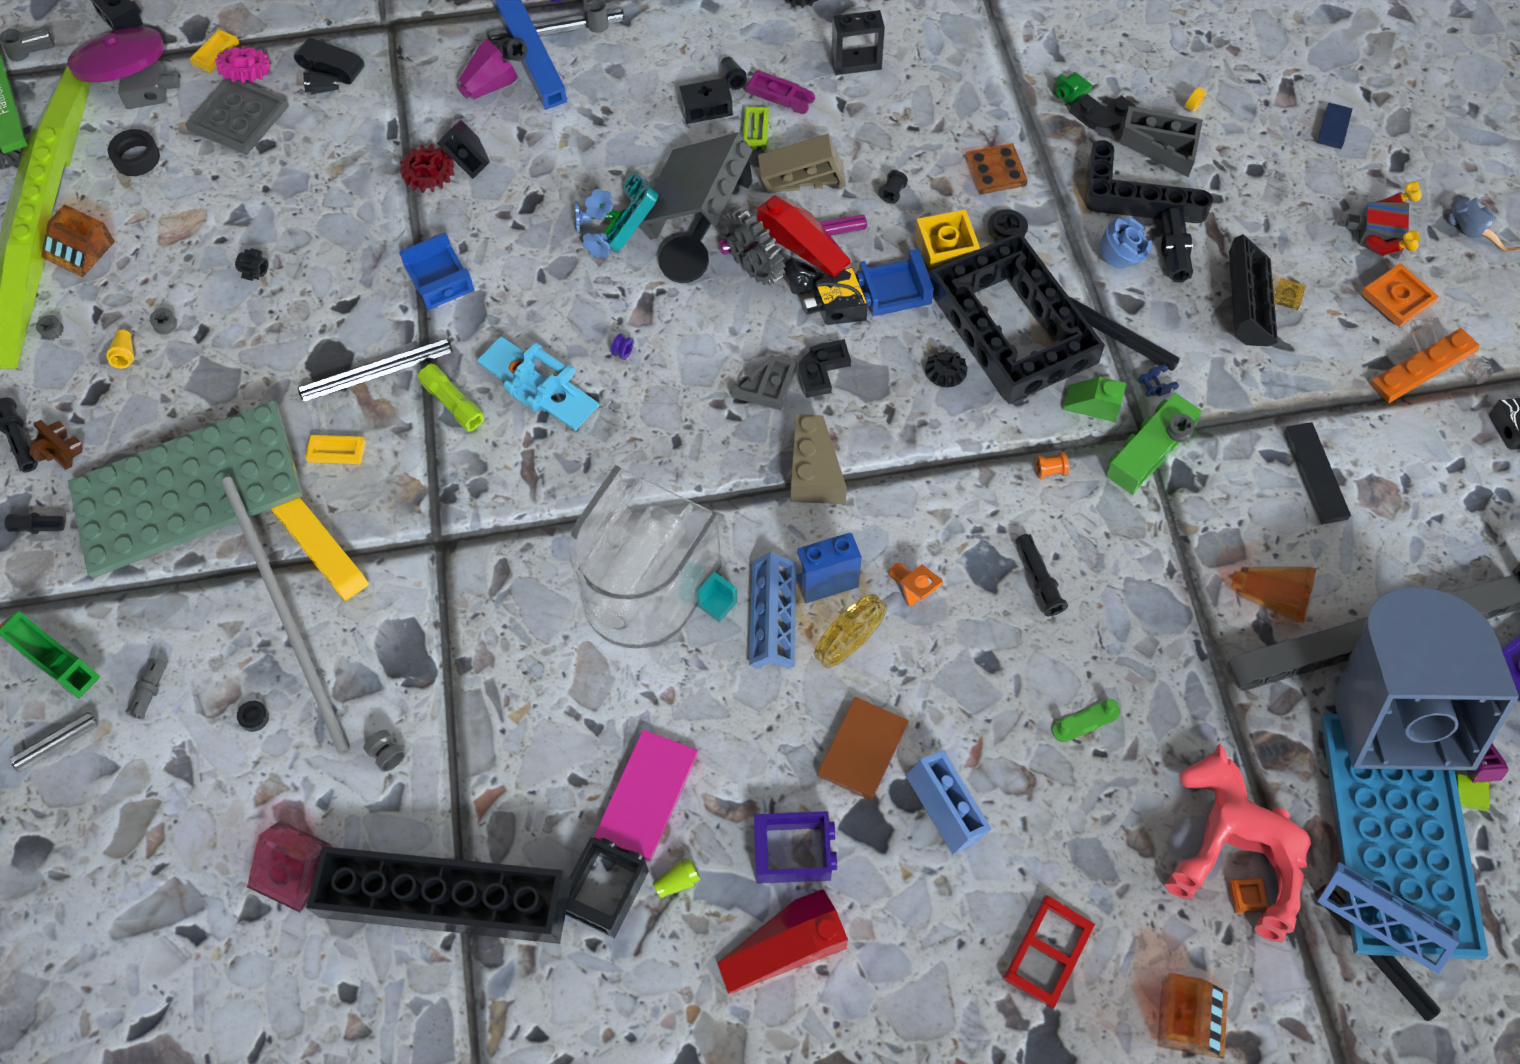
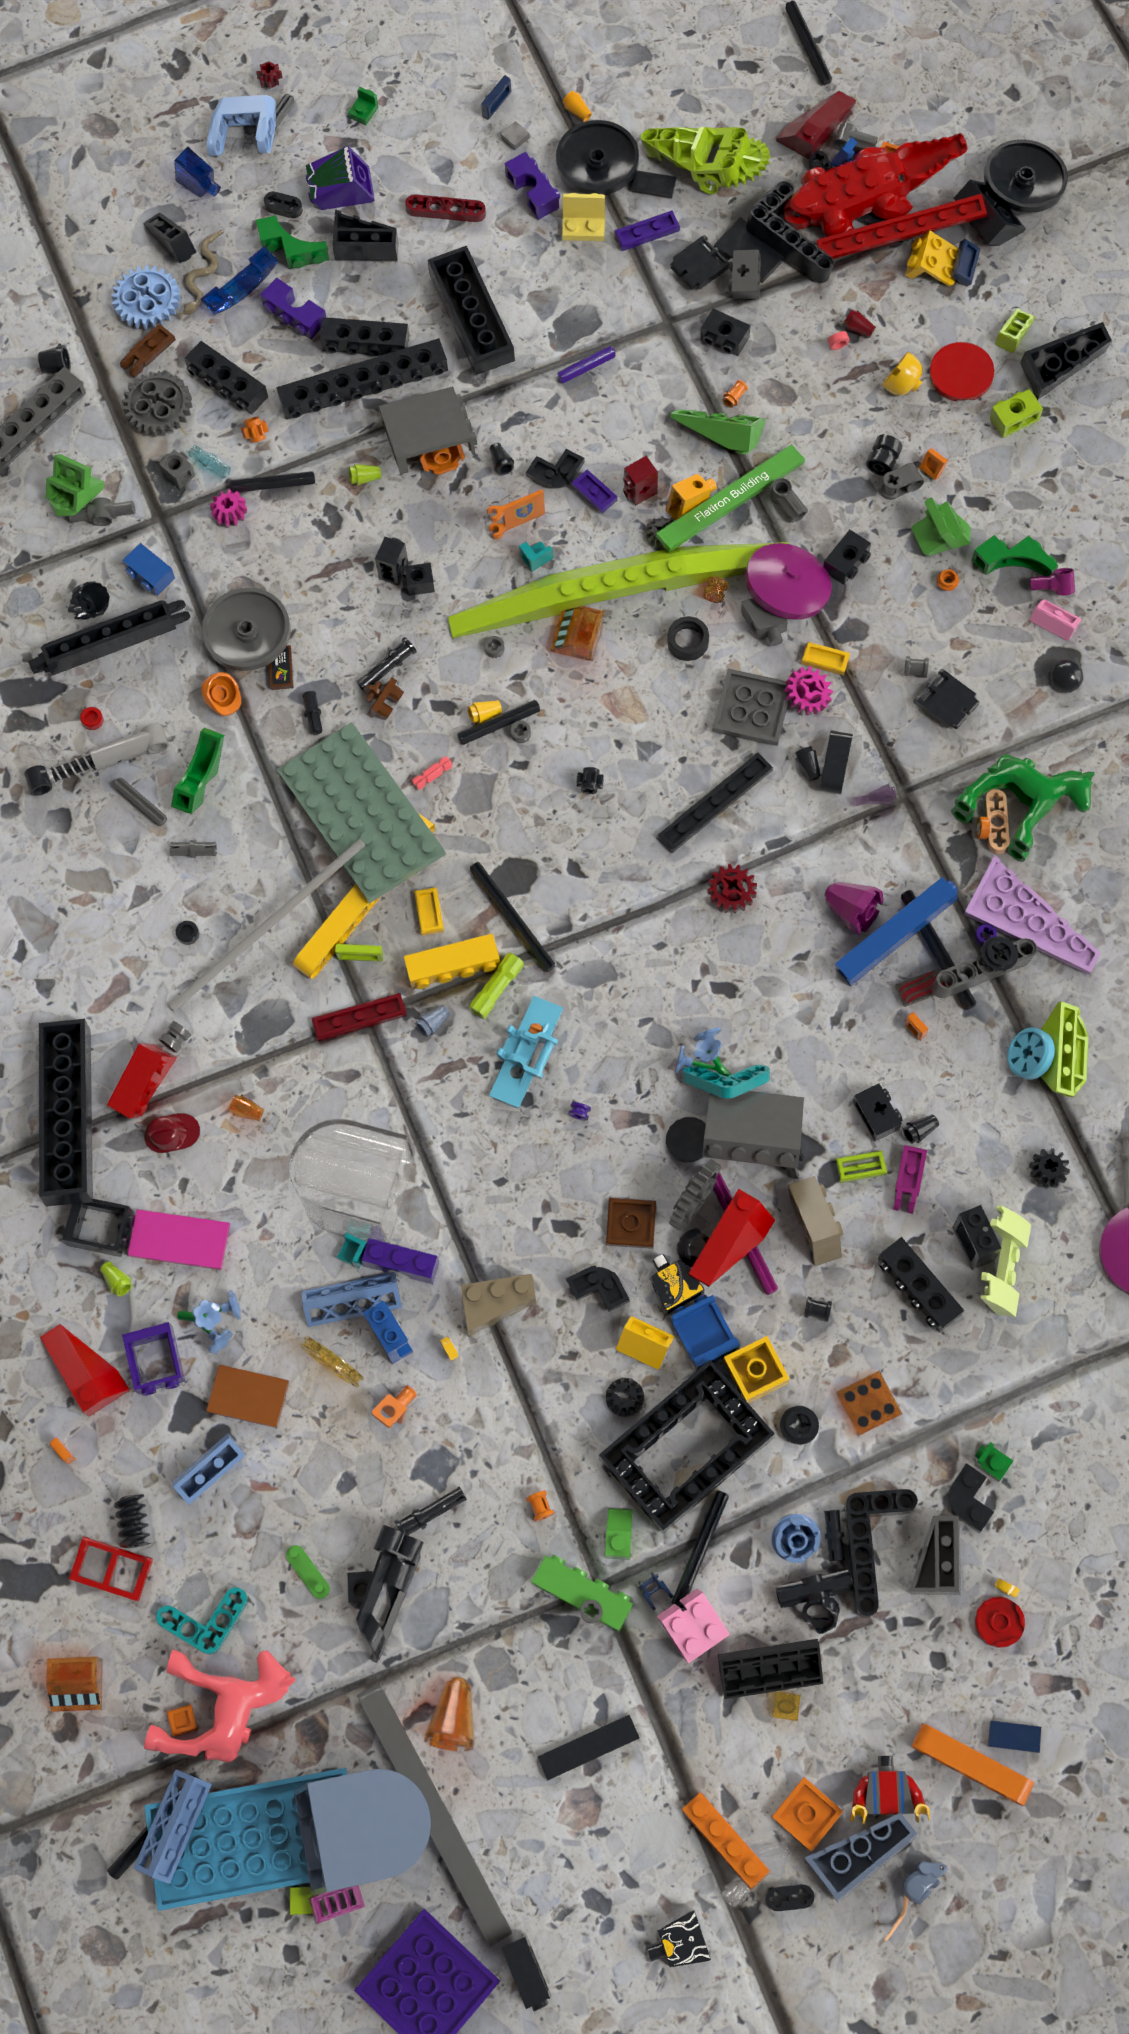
camera: 80 degrees right, 10 degrees up
(91, 118) = (715, 589): none -> clear orange wheel
(141, 340) = (498, 722): none -> black axle
(170, 414) = (432, 772): none -> coral axle
(285, 864) = (76, 998): clear pink slope -> none
(326, 169) = (715, 802): none -> black tile
(357, 525) = (359, 952): none -> lime tile
(381, 33) = (882, 796): none -> clear purple cone
(406, 434) = (452, 961): none -> yellow brick
(429, 797) = (141, 1079): none -> red wedge
(434, 545) = (359, 1017): none -> dark red tile
(436, 271) = (622, 933): blue panel -> none
(465, 149) = (759, 913): black slope -> none
(469, 469) = (431, 1021): none -> sand blue cone
(503, 686) = (245, 1108): none -> clear orange cone
(506, 781) = (172, 1133): none -> dark red piece
(511, 45) = (877, 915): black pin -> none
(589, 48) = (917, 988): none -> tile
(628, 54) = (916, 1026): none -> orange tile
(749, 535) = (414, 1263): none -> dark purple arch
(758, 328) = (631, 1223): none -> reddish brown tile
(761, 759) = (208, 1315): none -> medium blue plant
(768, 383) = (570, 1244): dark grey wing -> none
(856, 519) = (449, 1348): none -> yellow tile
(888, 102) = (918, 1271): none -> black brick
(888, 984) = (62, 1450): none -> orange tile
(893, 337) = (644, 1342): none -> yellow panel
(911, 39) = (1014, 1234): none -> yellowish green wedge
(995, 908) = (131, 1521): none -> black piece
(1107, 619) = (396, 1568): none -> black panel
(1109, 668) = (354, 1580): none -> black brick
(1114, 215) = (834, 1535): none -> black pin
(1143, 851) = (203, 1632): none -> teal beam
(1205, 236) = (823, 1625): none -> black piece
(1211, 349) = (694, 1628): none -> bright pink piece
(1225, 115) = (999, 1622): none -> red tile
(1360, 158) = (972, 1764): none -> orange beam
(1448, 256) = (855, 1859): none -> sand blue wedge
(1486, 328) = (791, 1904): none -> black beam

